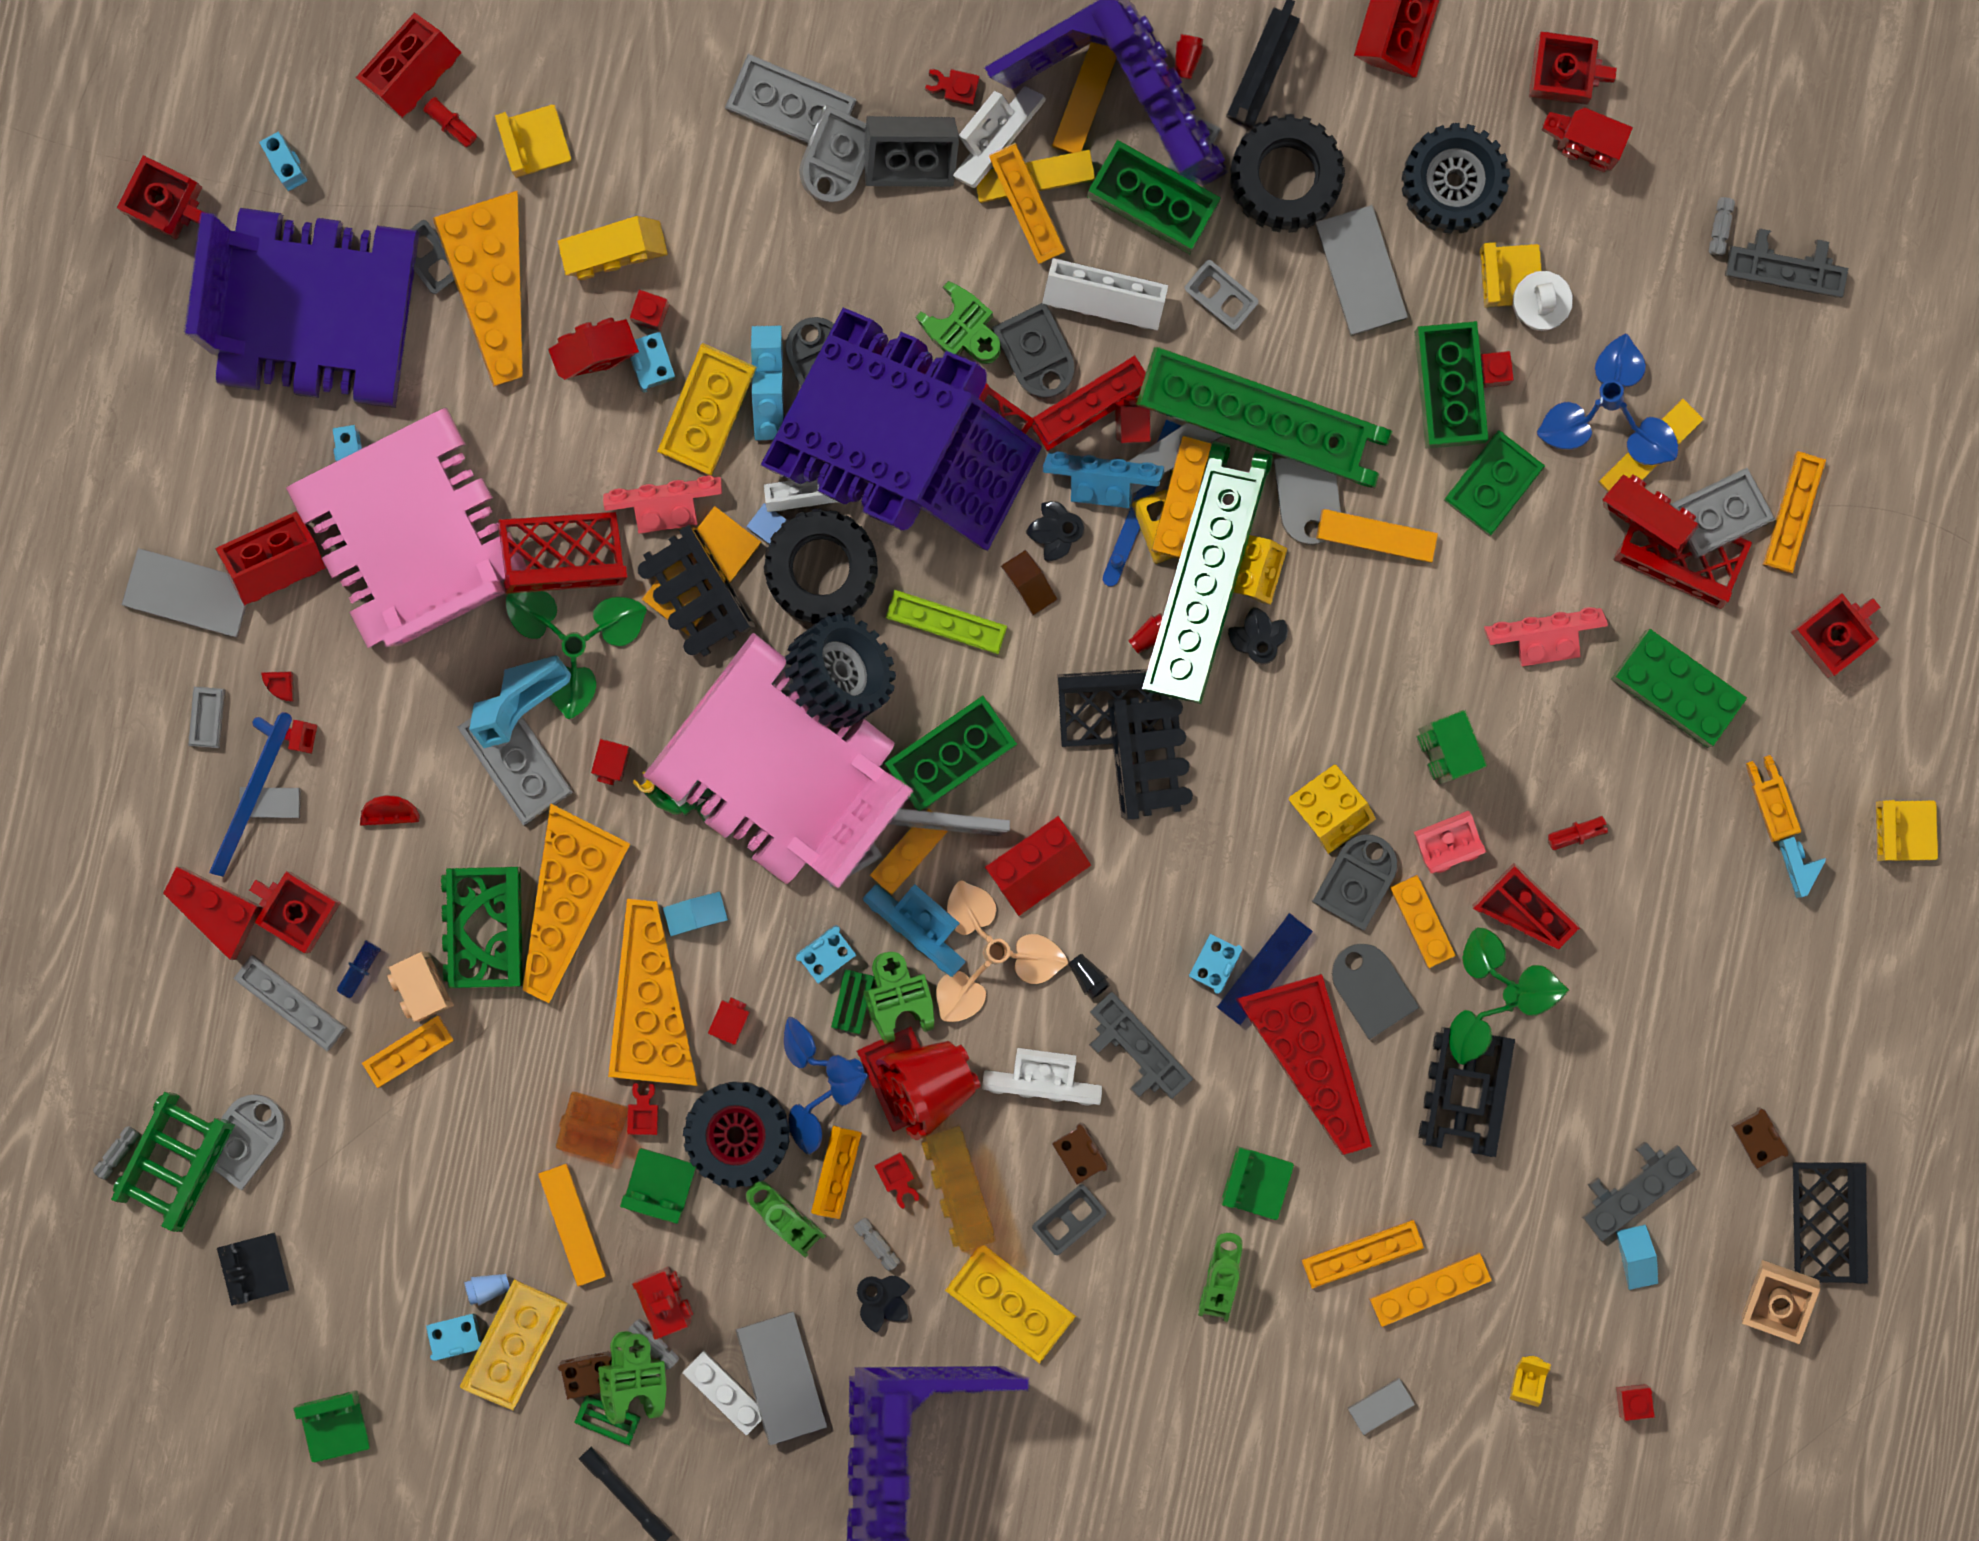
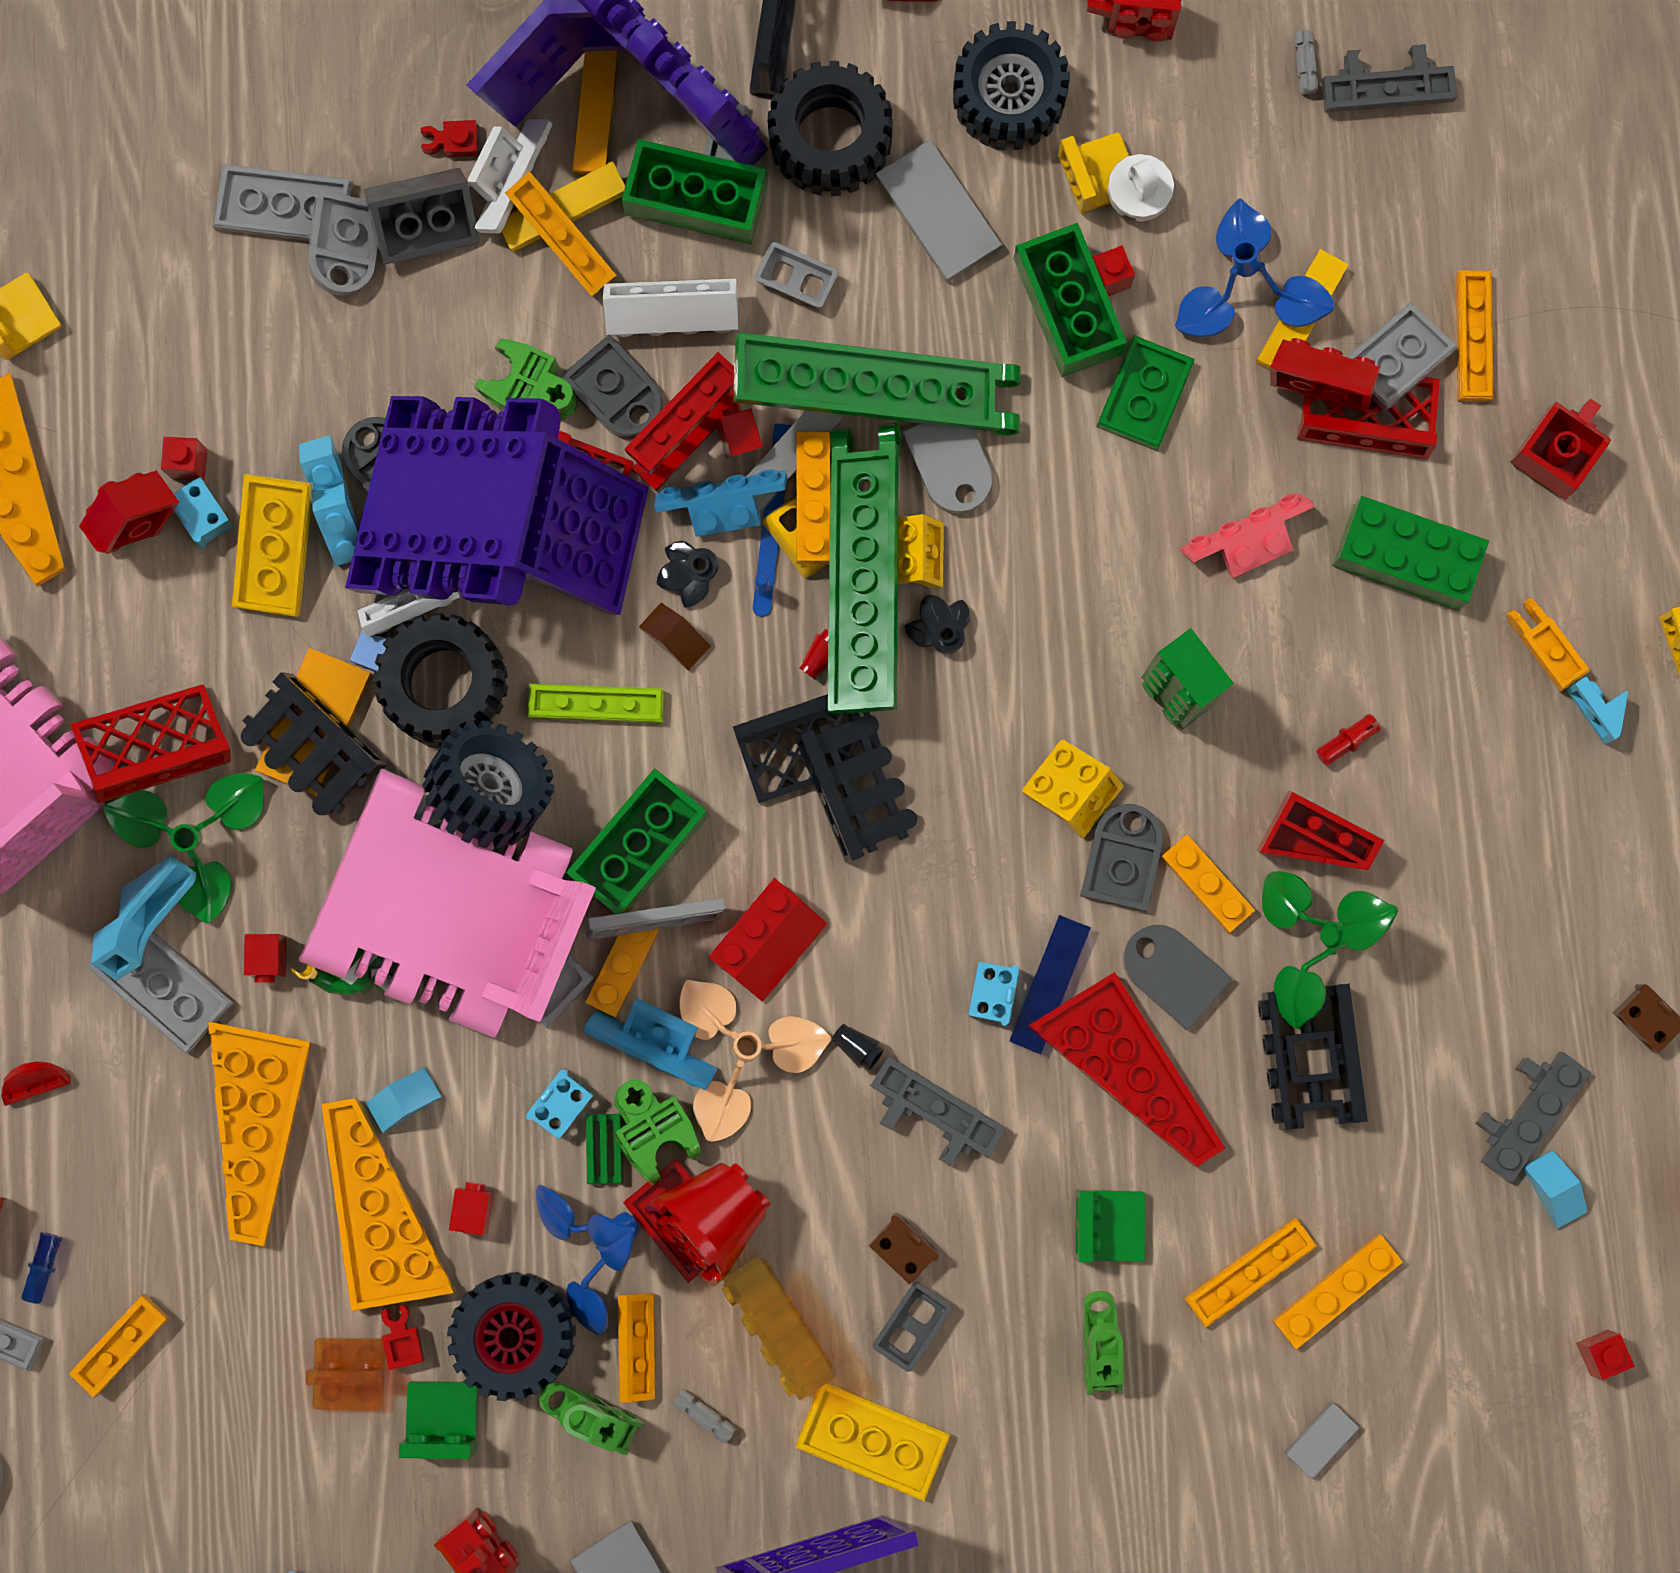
camera: 10 degrees left, 5 degrees down
(419, 987) = (110, 1268): light nougat brick -> none
(509, 960) = (205, 1182): green fence -> none
(572, 1224) = (354, 1491): light orange tile -> none
(612, 247) = (126, 401): yellow wedge -> none
(663, 505) = (252, 663): coral bracket -> none
(885, 1303) = (732, 1482): black plate -> none
(895, 1175) = (704, 1331): red plate -> none
(1043, 1076) = (839, 1172): white bracket -> none
(1188, 55) = (691, 36): red cone -> none
(1377, 535) = (1036, 481): light orange tile -> none
(1449, 842) = (1212, 788): coral bracket -> none
(1529, 1380) = (1479, 1363): yellow bracket -> none

